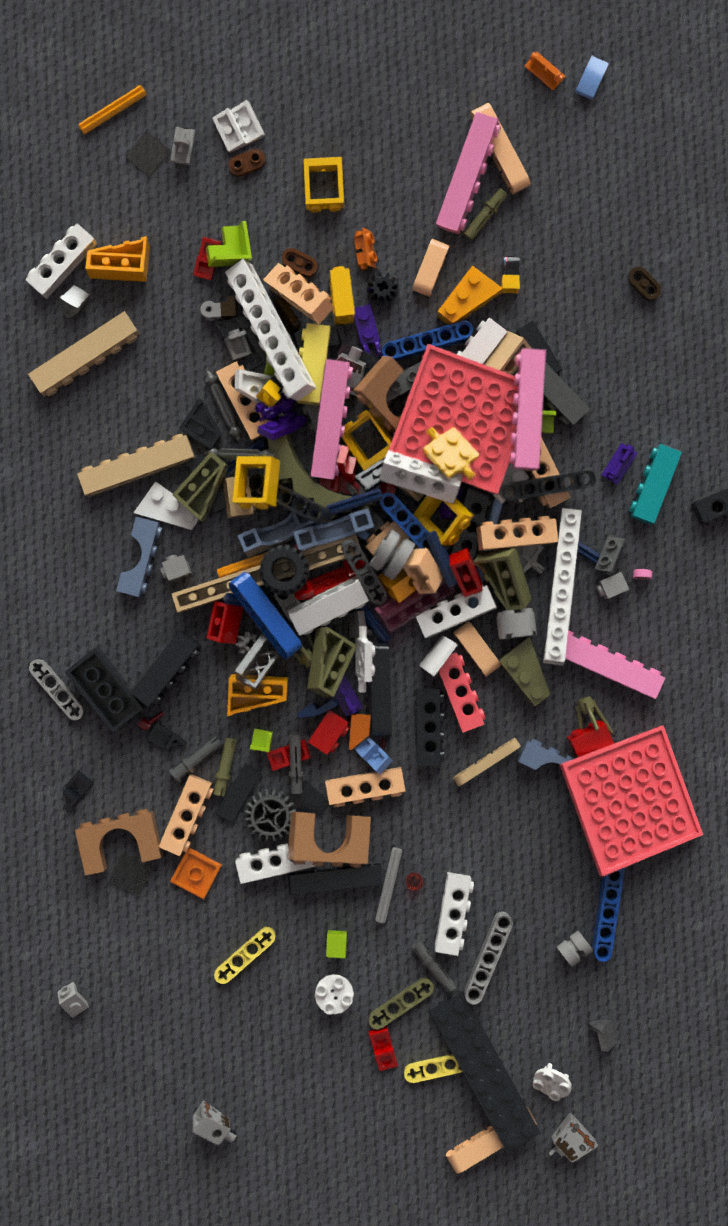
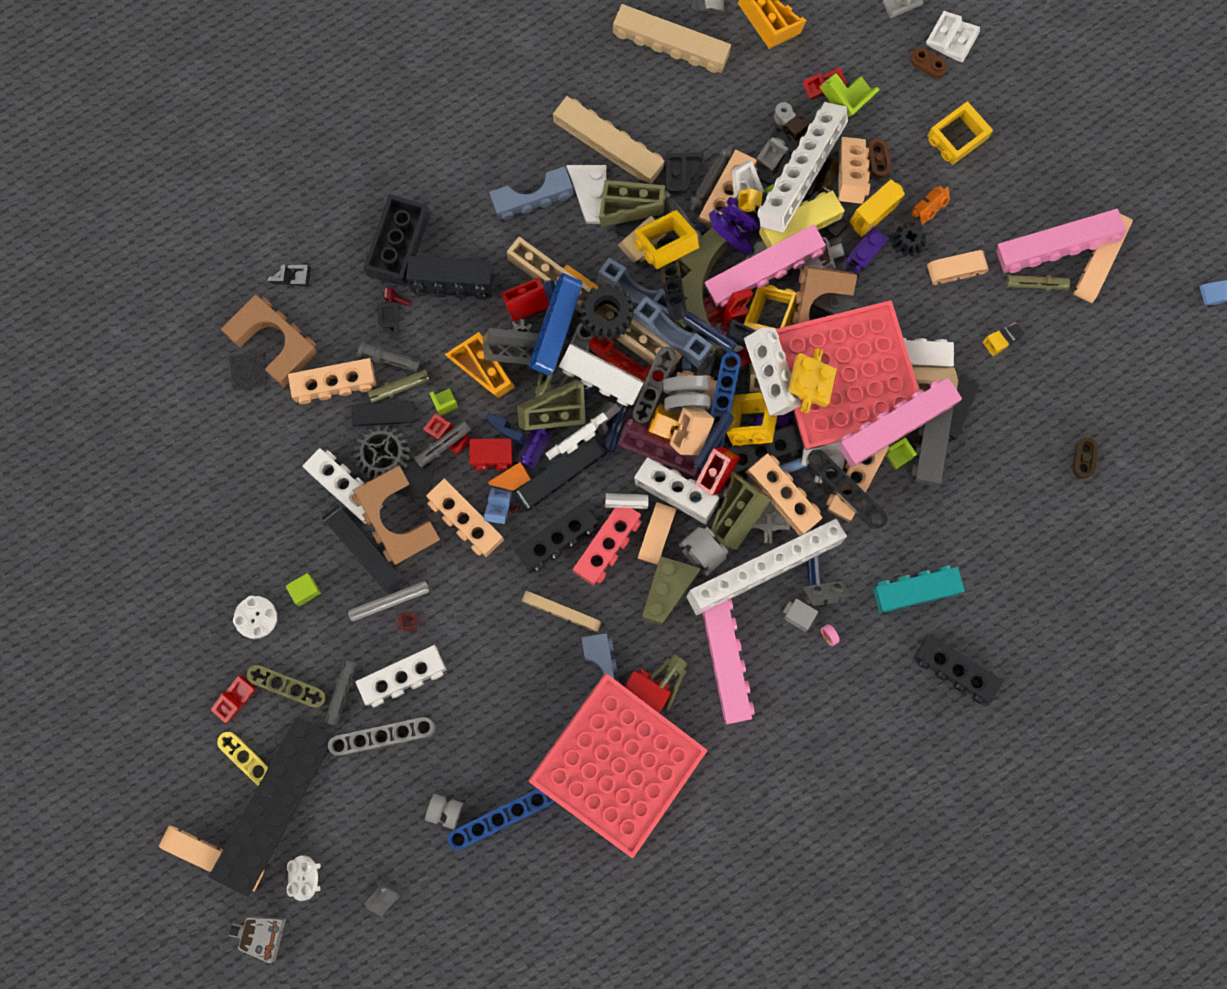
camera: 55 degrees right, 10 degrees down
(59, 687) = (366, 202): light grey beam -> none
(71, 1000) = (100, 394): light grey bracket -> none
(175, 567) = (544, 229): light grey brick -> none
(196, 873) = (286, 425): orange tile -> none
(212, 1124) = (63, 590): light grey torso -> none
(245, 955) = (240, 514): light yellow beam -> none
(433, 335) = (903, 308): blue beam -> none
(468, 296) = (957, 314): light orange wedge -> none
(544, 70) = (1197, 249): orange hinge -> none
(619, 463) = (913, 546): dark purple hinge -> none

